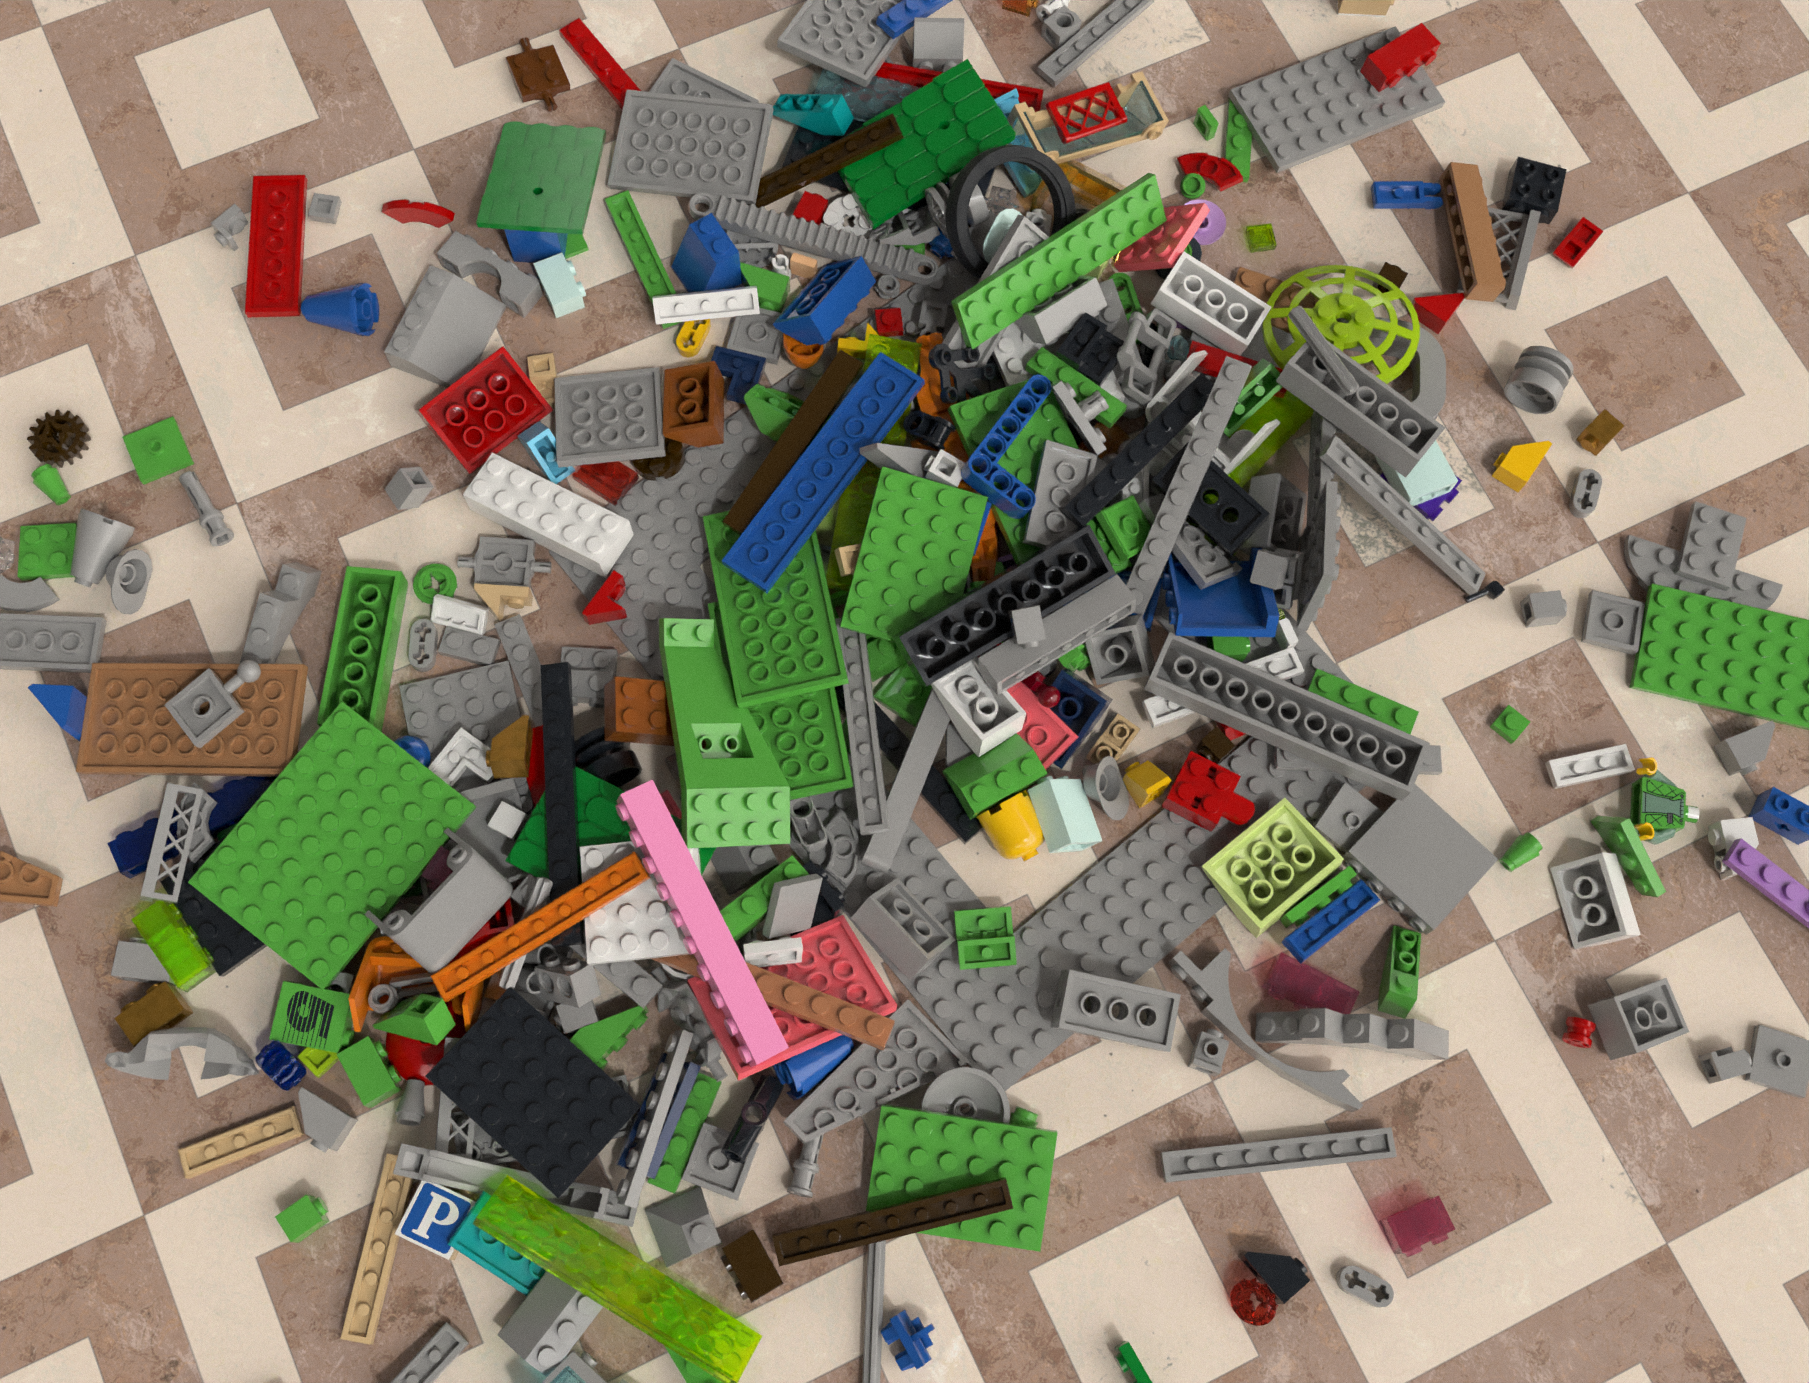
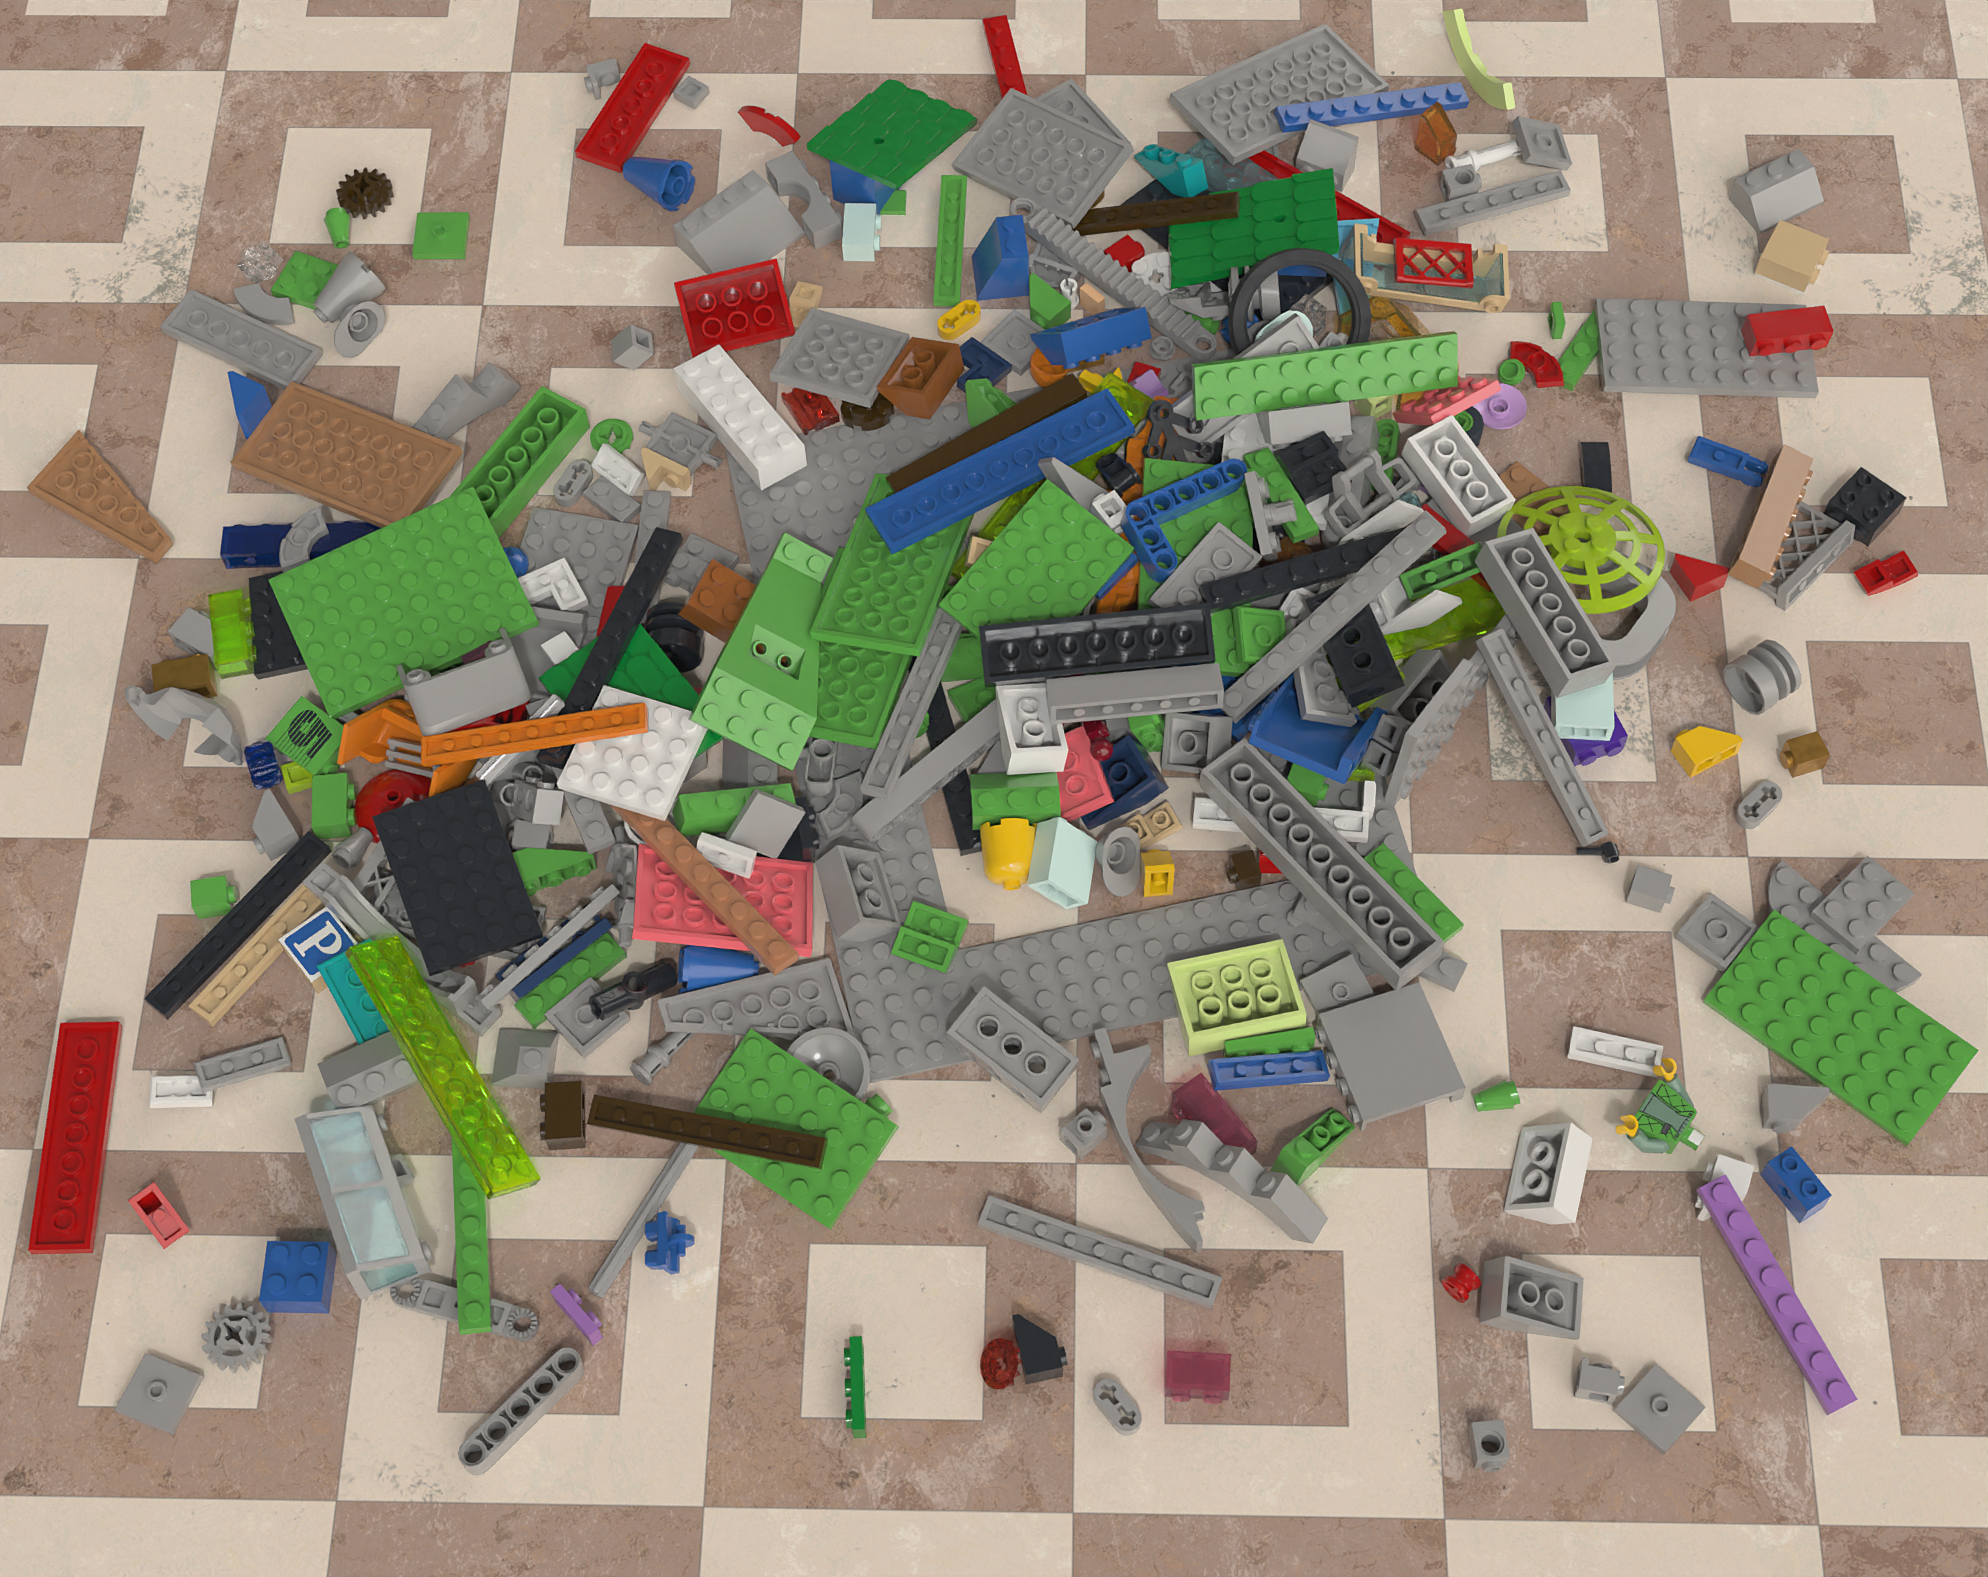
camera: 35 degrees right, 10 degrees down
(159, 844) = (268, 540): light grey fence -> none
(210, 518) = (453, 305): light grey pin -> none
(223, 705) = (374, 454): light grey plate -> none
(240, 1142) = (197, 816): tan tile -> none
(342, 1235) = (237, 925): none -> black plate
(379, 991) = (373, 742): light grey plate -> none
(418, 1018) = (395, 773): bright green slope -> none
(511, 750) = (595, 590): pearl gold slope -> none
(538, 74) = (943, 49): reddish brown plate -> none
(542, 449) = (765, 356): medium azure slope -> none
(602, 606) = (744, 510): red slope -> none
(701, 924) = (668, 788): bright pink brick -> none
(706, 305) = (980, 296): white plate -> none
(902, 329) = (1149, 384): none -> medium lavender panel
(1027, 626) = (1102, 665): light grey brick -> none
(1206, 793) = (1208, 903): red brick -> none
(1261, 238) = (1555, 445): clear neon green tile -> none
(1270, 569) = (1374, 723): light grey panel -> none
(1306, 244) = (1596, 465): none -> black slope
(1323, 350) = (1528, 545): light grey axle -> none
(1392, 273) = (1668, 528): dark brown plate -> none
(1510, 724) = (1555, 980): bright green plate -> none
(1624, 841) = (1607, 1147): bright green wing -> none
(1661, 1159) = (1493, 1432): none -> light grey brick

